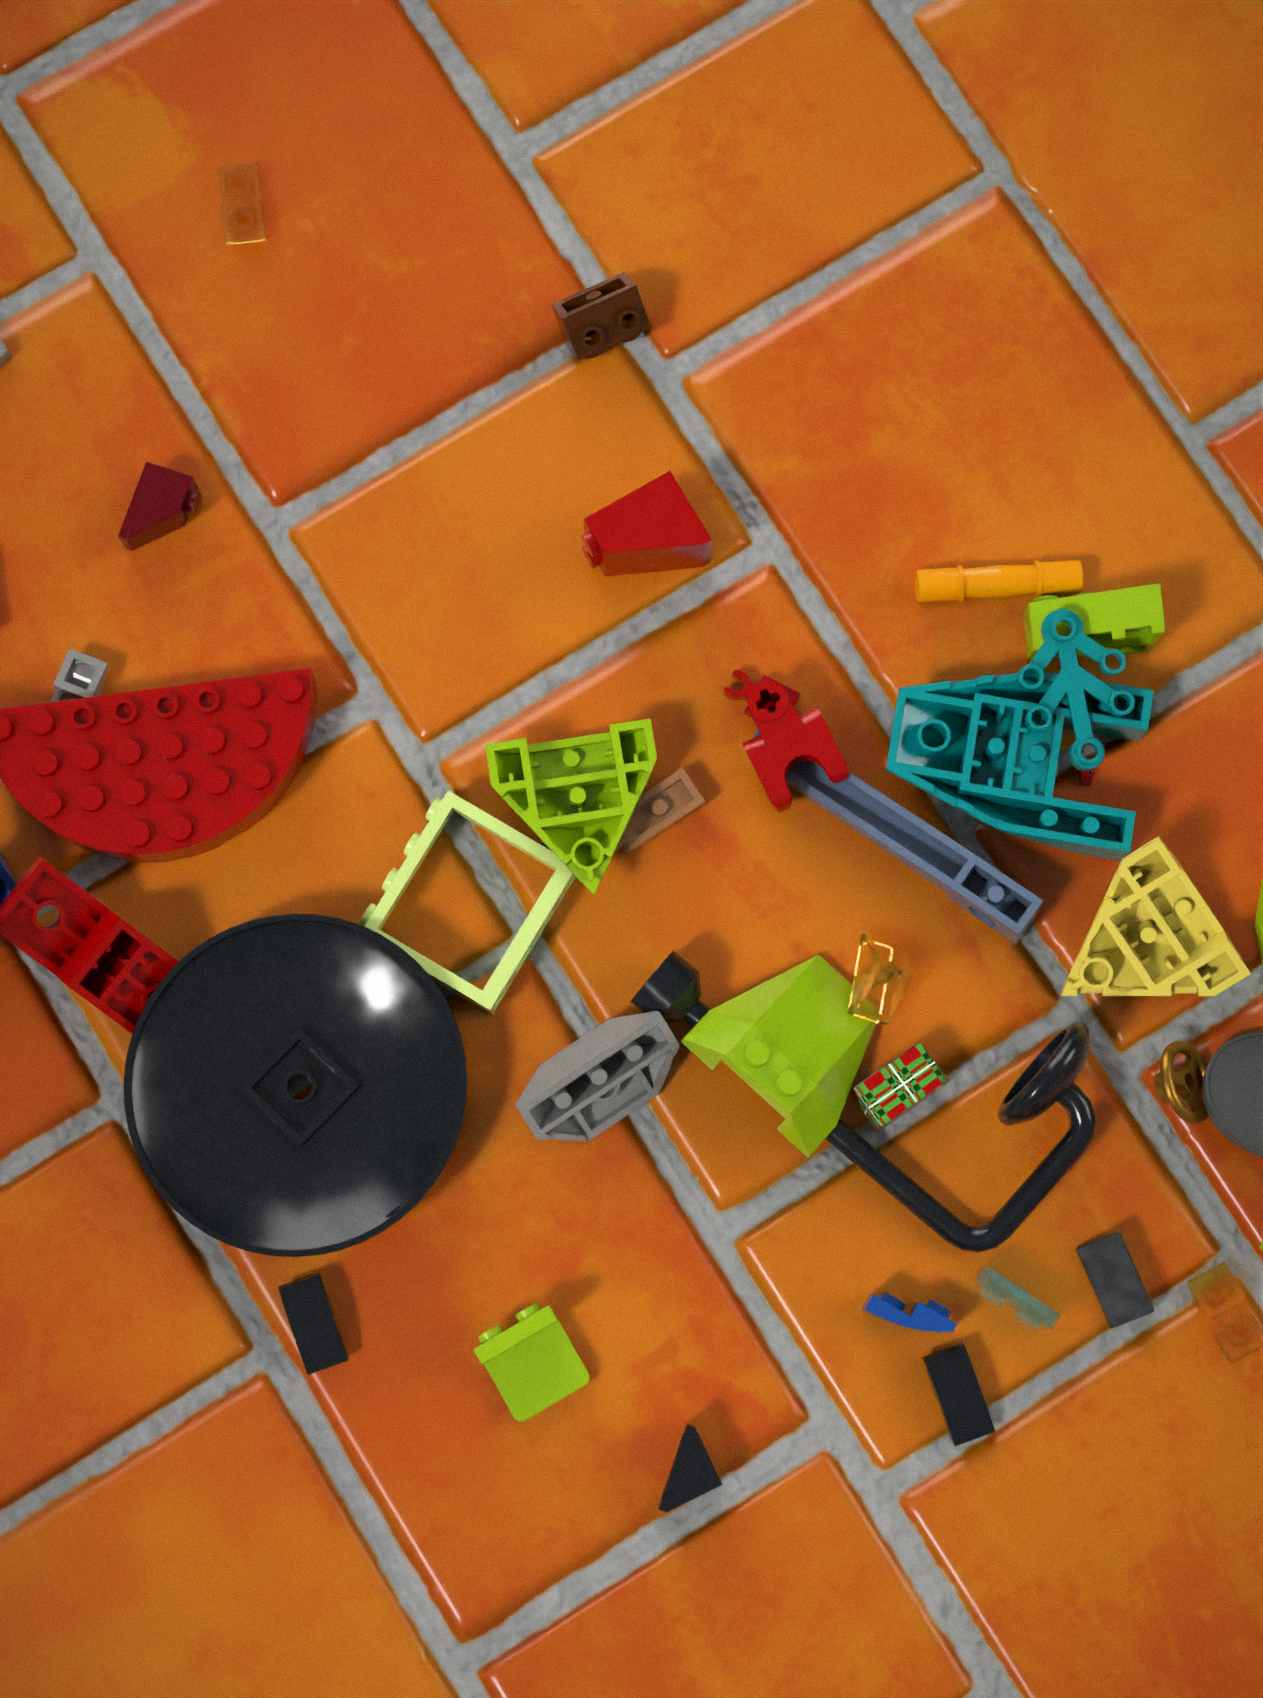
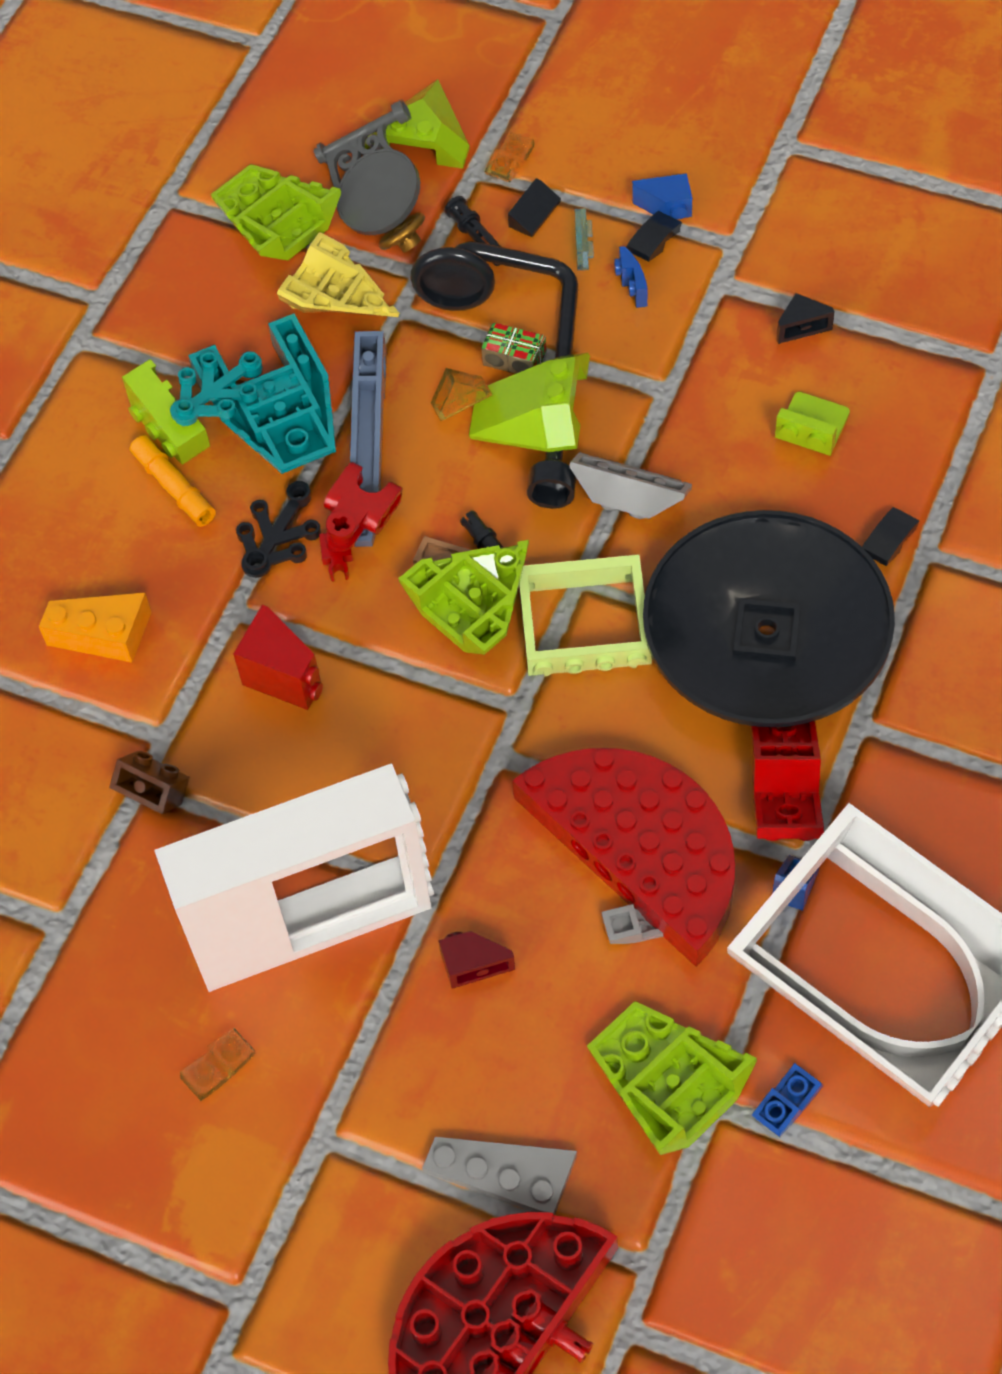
camera: 120 degrees left, 20 degrees down
(316, 339) = (227, 873): none -> white panel
(656, 869) = (483, 535): none -> black pin
(838, 647) = (277, 534): none -> black plant
(845, 381) = (97, 625): none -> light orange wedge
(1007, 1456) = (664, 194): none -> blue slope
(1147, 1180) = (468, 215): none -> black pin

